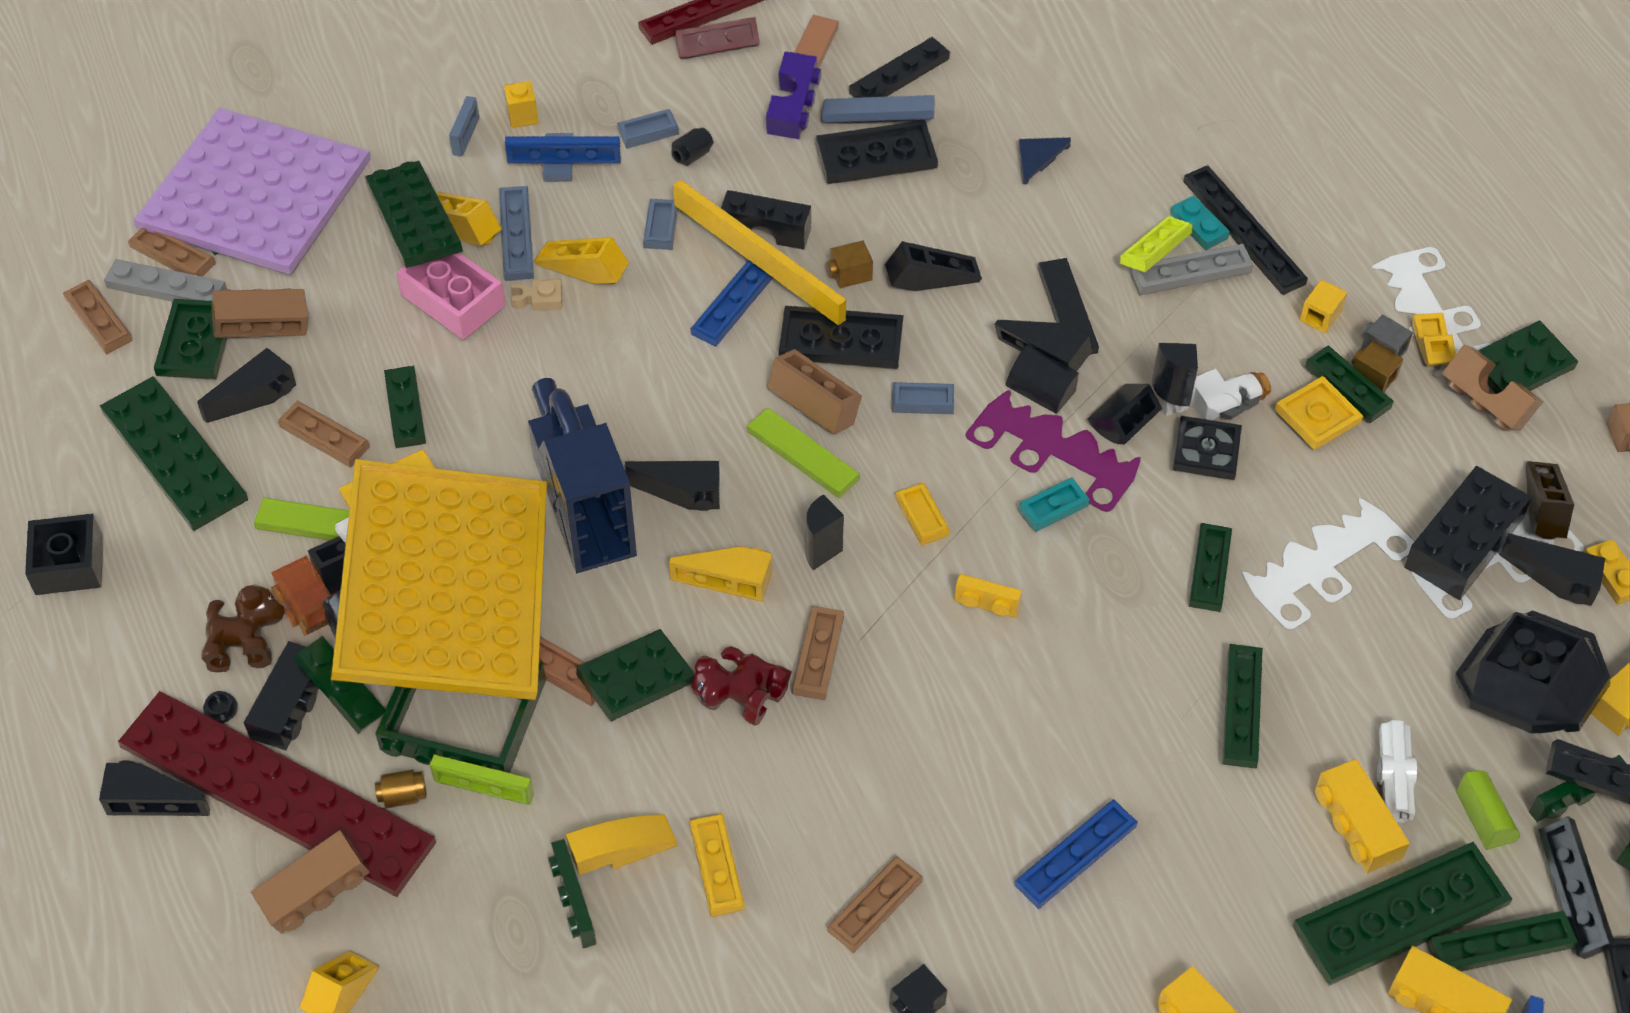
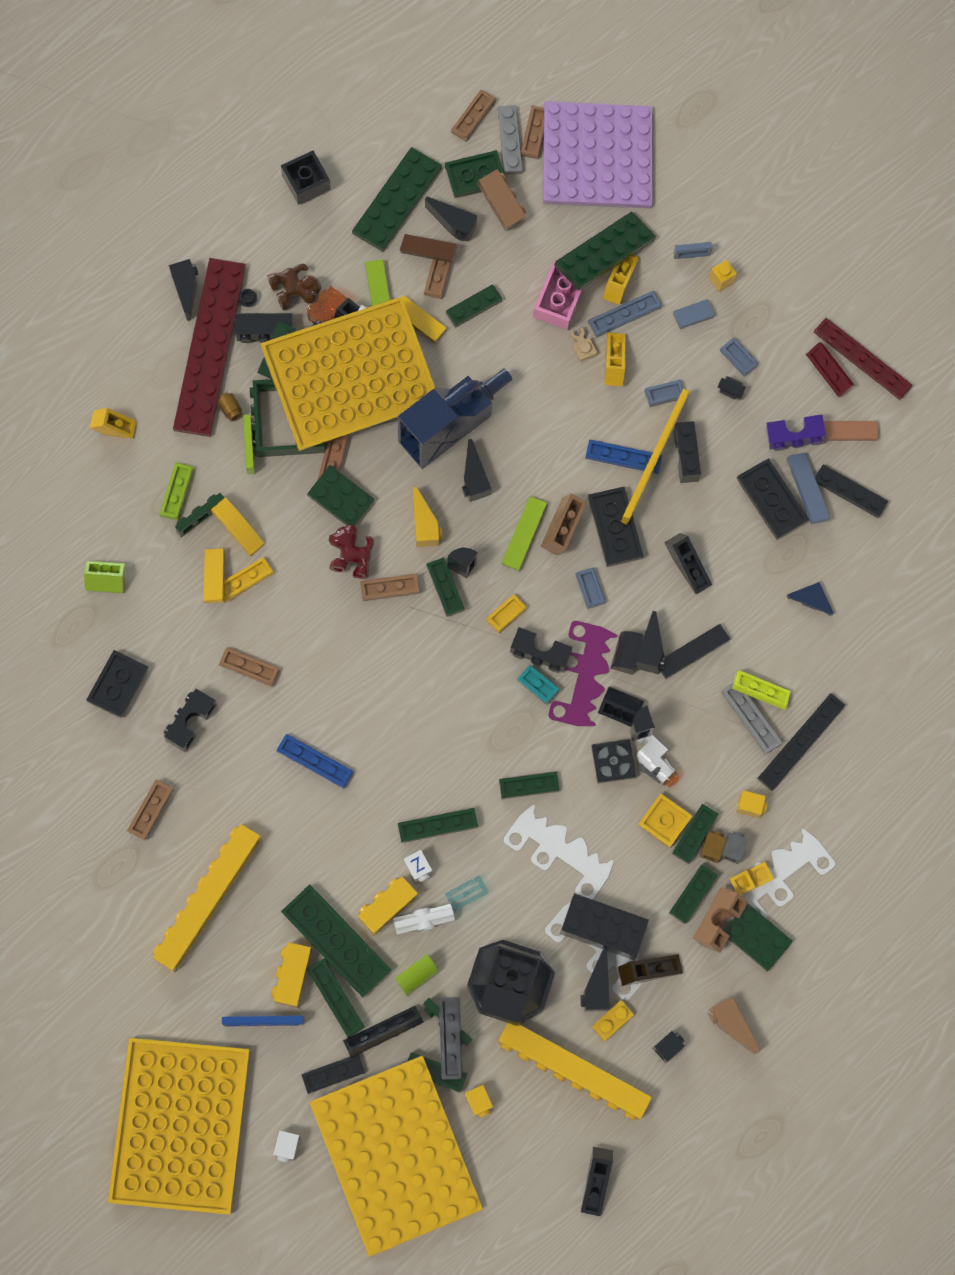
camera: 65 degrees right, 20 degrees up
(280, 431) = (428, 248): none -> reddish brown tile
(310, 883) = (159, 386): medium nougat brick -> none
(511, 923) = (176, 491): none -> lime tile
(563, 149) = (691, 315): blue tile -> none
(693, 904) = (214, 575): none -> yellow tile
(849, 577) = (445, 587): none -> dark green plate
(850, 264) = (672, 513): pearl gold brick -> none
(988, 500) = (554, 658): none -> black arch
(988, 596) = (457, 658): yellow plate -> none
(1205, 226) = (795, 712): teal plate -> none
(1305, 752) = (418, 867): none -> white brick
(1376, 696) = (481, 885): none -> clear light blue tile
(1441, 413) = (693, 894): none -> dark green plate

